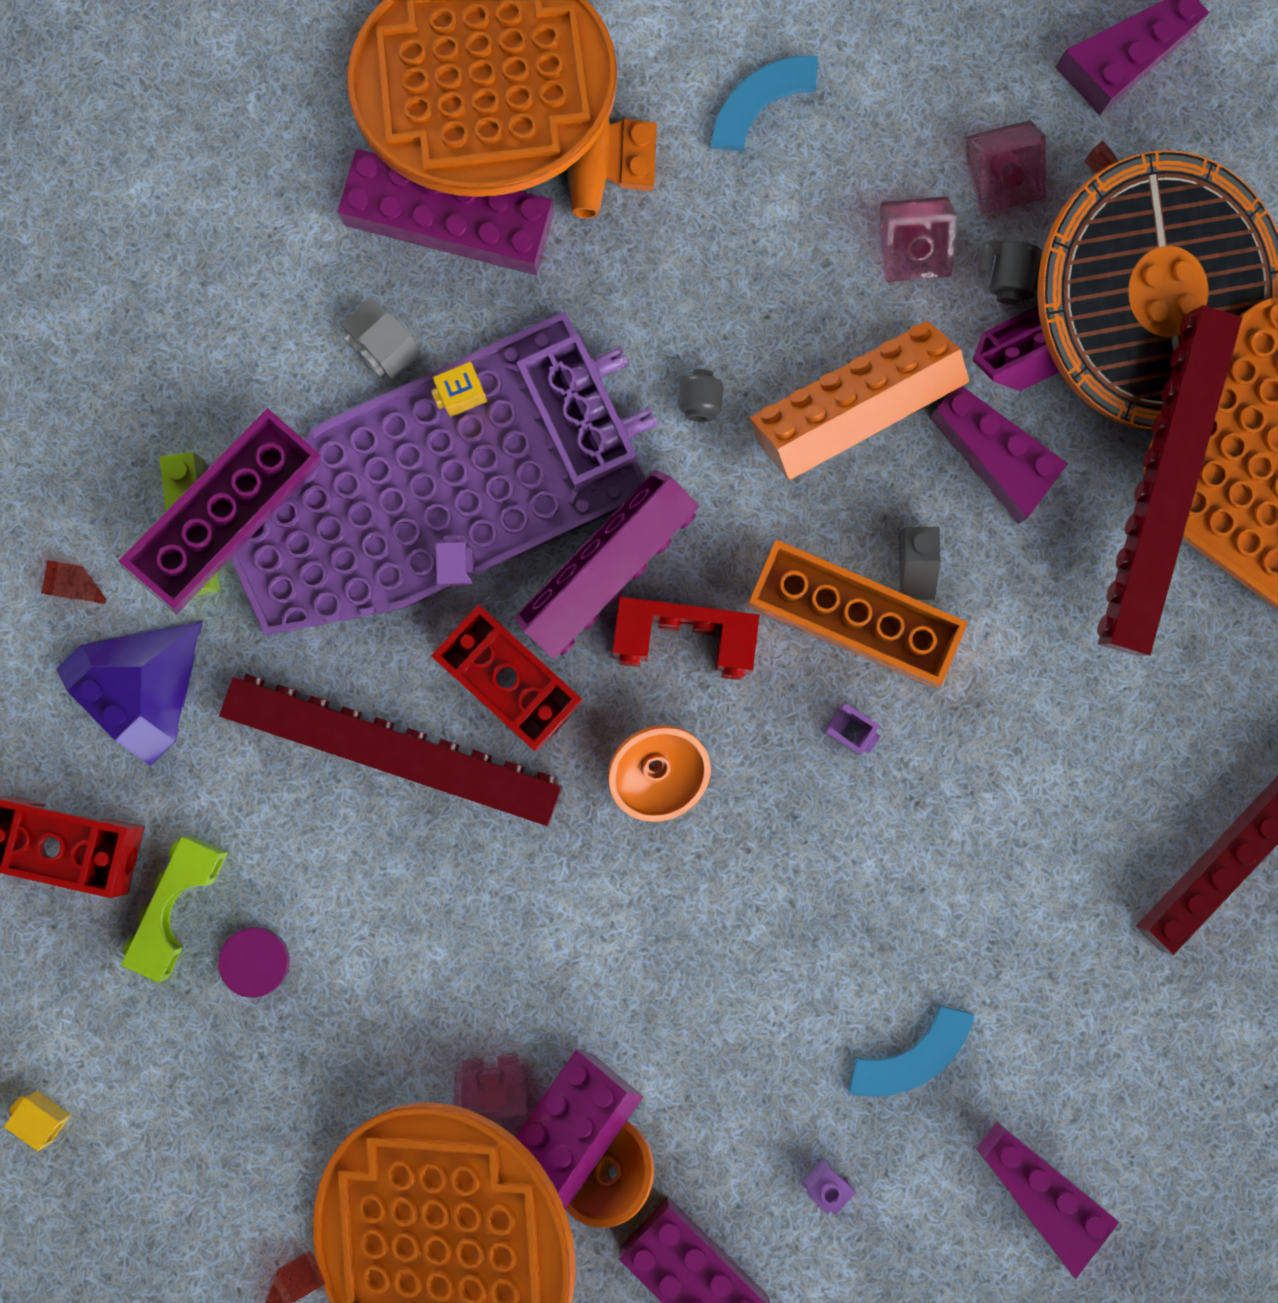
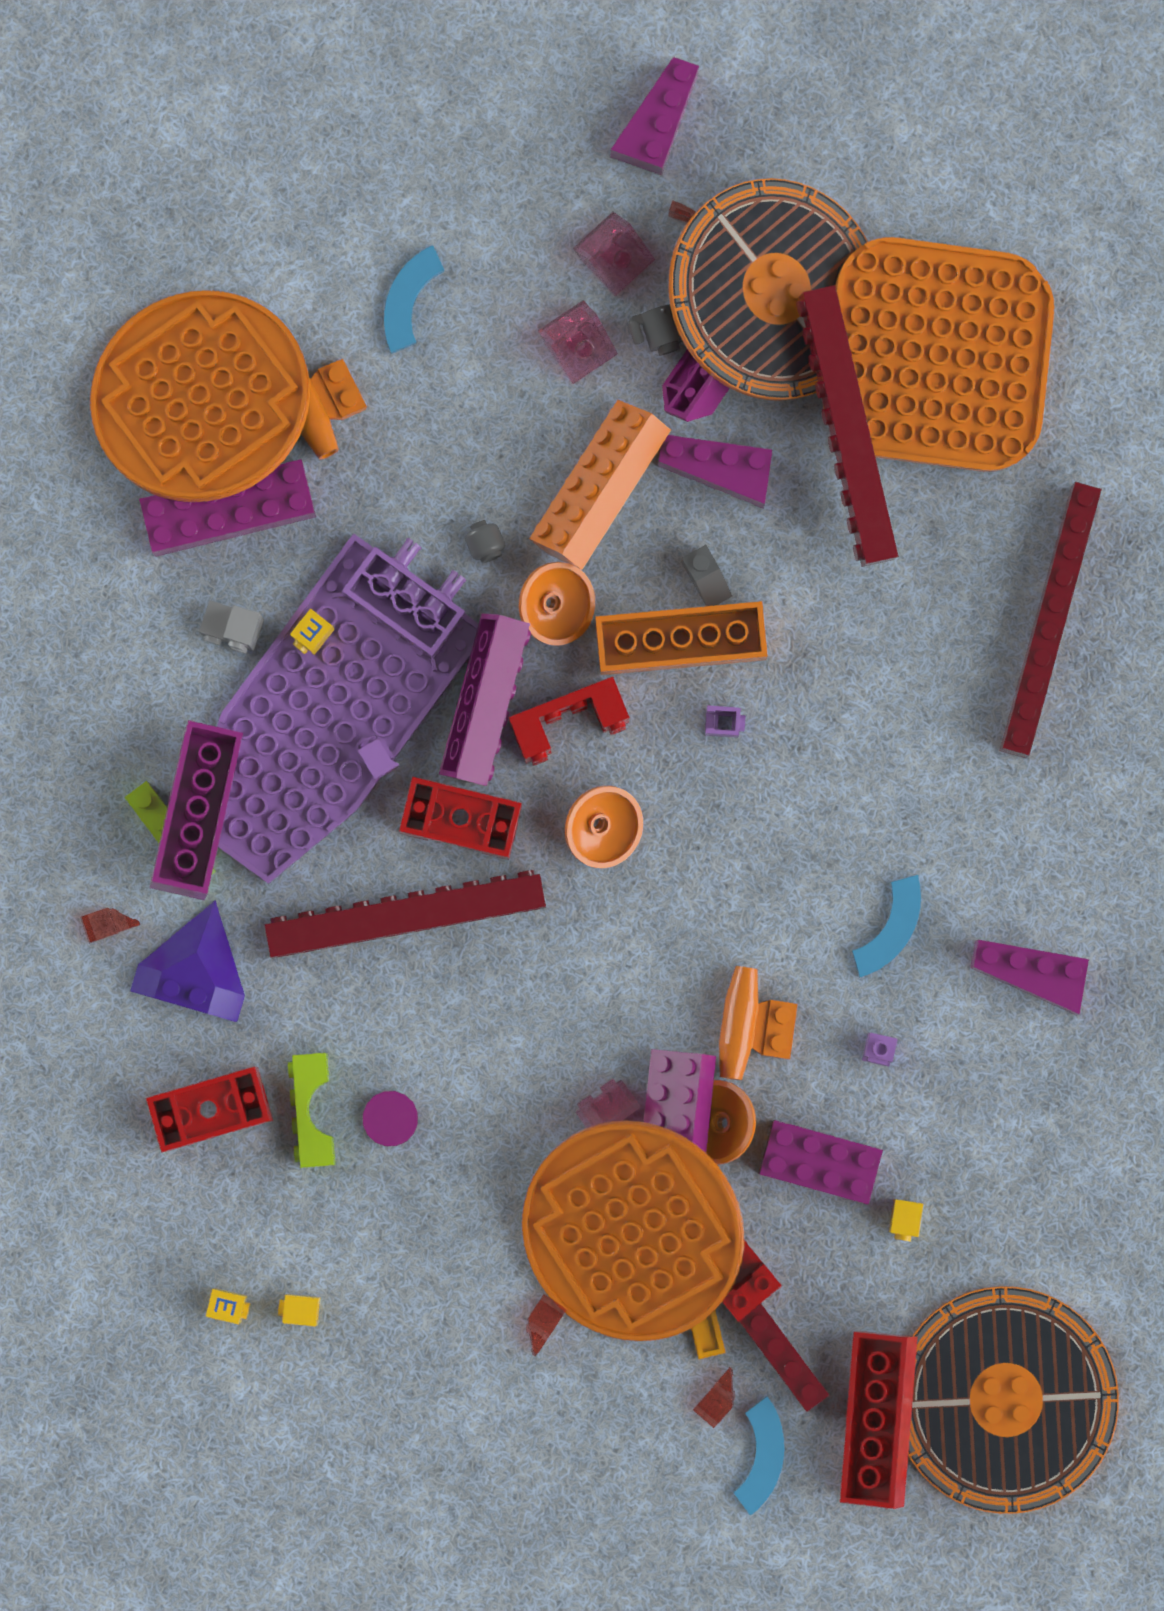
camera: 30 degrees left, 0 degrees up
(702, 1081) = (752, 1025): none -> orange plate
(754, 515) = (570, 606): none -> orange dish

